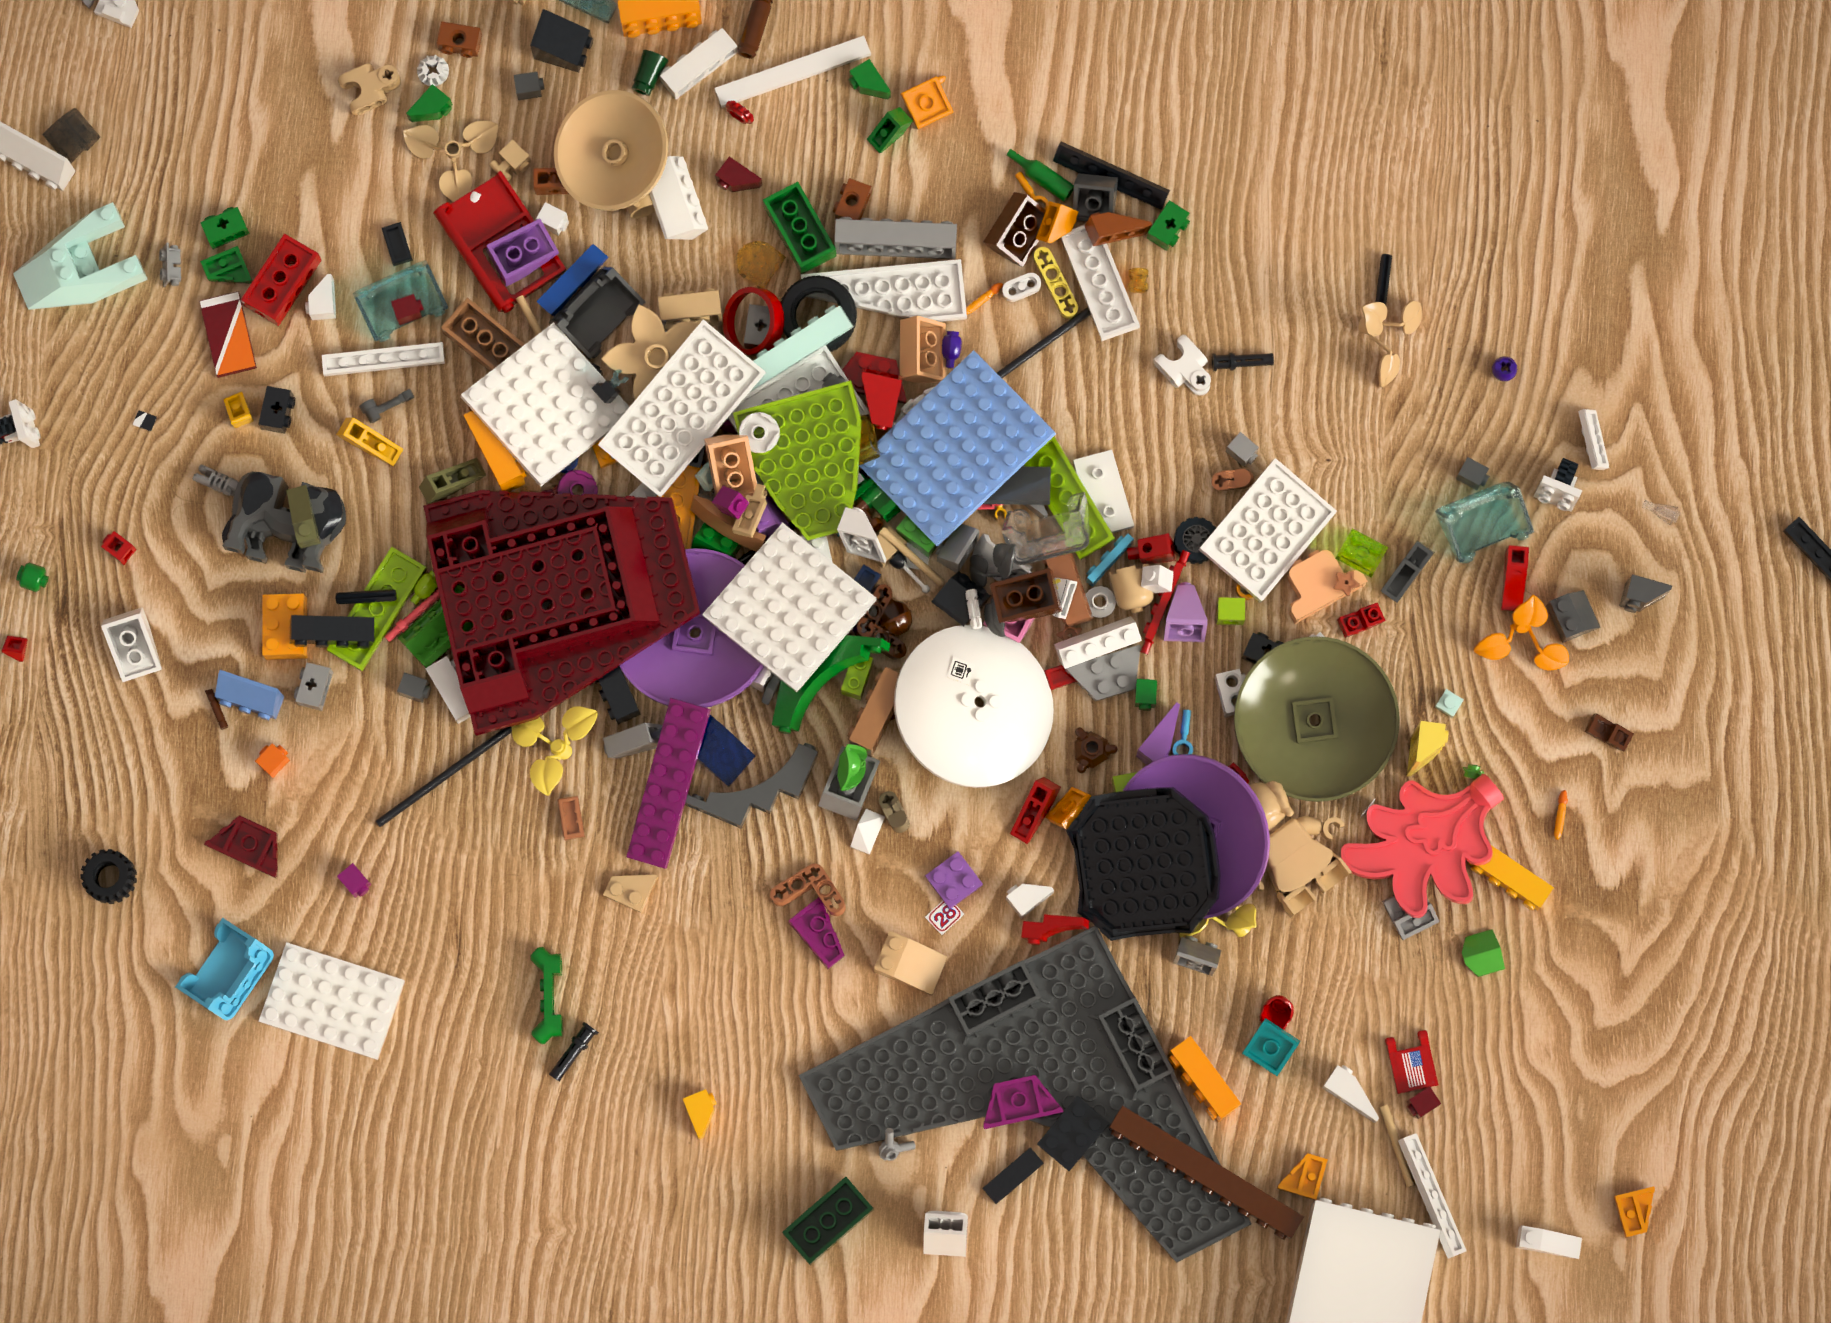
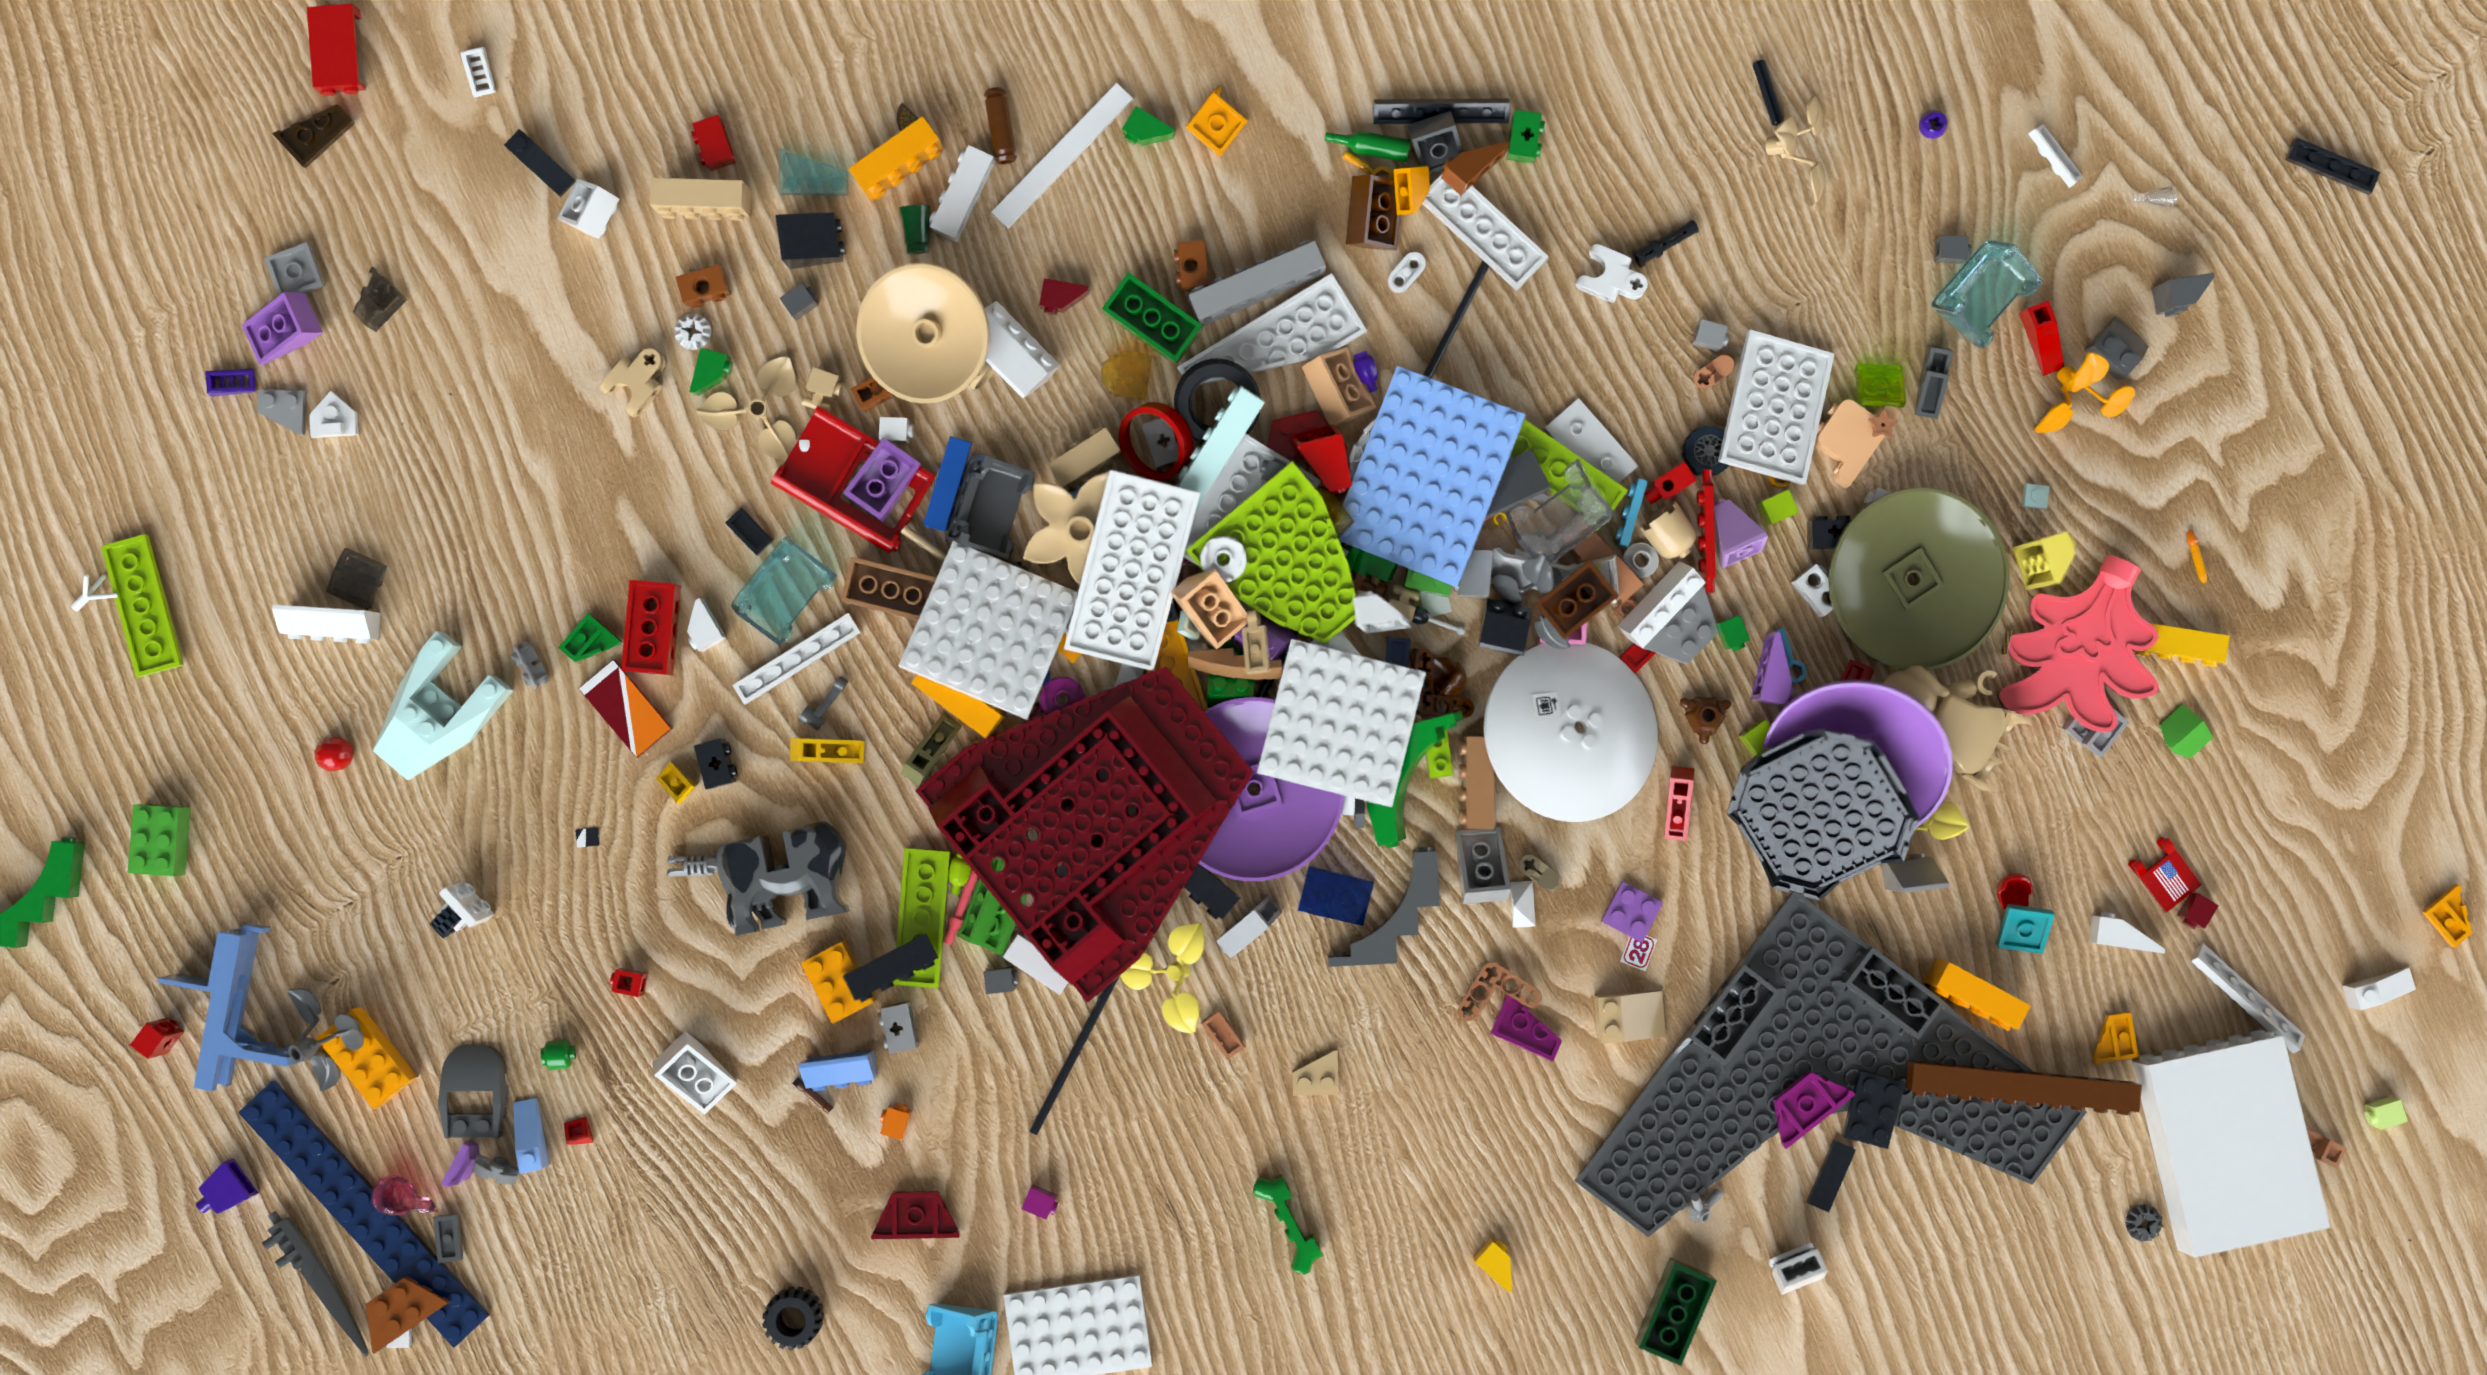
camera: 30 degrees left, 10 degrees up
(214, 230) = (575, 594): green brick -> none
(303, 517) = (801, 868): olive slope -> none
(366, 596) = (905, 913): black axle -> none
(407, 309) = (795, 595): dark red brick -> none
(579, 1043) = (1343, 1255): black pin -> none
(608, 390) = (1047, 586): black piece -> none
(668, 783) = (1305, 955): magenta plate -> none
(730, 502) = (1230, 645): magenta brick -> none
(739, 112) = (1030, 226): red gear -> none
(851, 766) = (1481, 854): bright green hat -> none
(889, 129) = (1192, 170): green slope -> none
(911, 556) = (1433, 606): tan bar -> none
(973, 609) = (1526, 634): white axle -> none
(983, 298) = (1374, 299): light orange piece -> none
(1027, 897) = (1714, 895): white slope -> none
(1052, 284) = (1435, 254): light yellow beam -> none
(1052, 924) = (1741, 926): red slope -> none
(1068, 808) = (1714, 787): light orange tile -> none
(1138, 280) = (1521, 208): clear yellow wheel -> none
(1157, 579) = (1694, 513): white brick -> none
(1361, 620) = (1909, 453): red slope -> none
(1394, 1139) = (2186, 961): tan bar -> none
(1472, 771) = (2092, 555): bright green plate -> none
(1560, 487) = (2048, 220): white plate -> none
(1608, 732) = (2206, 449): reddish brown slope -> none

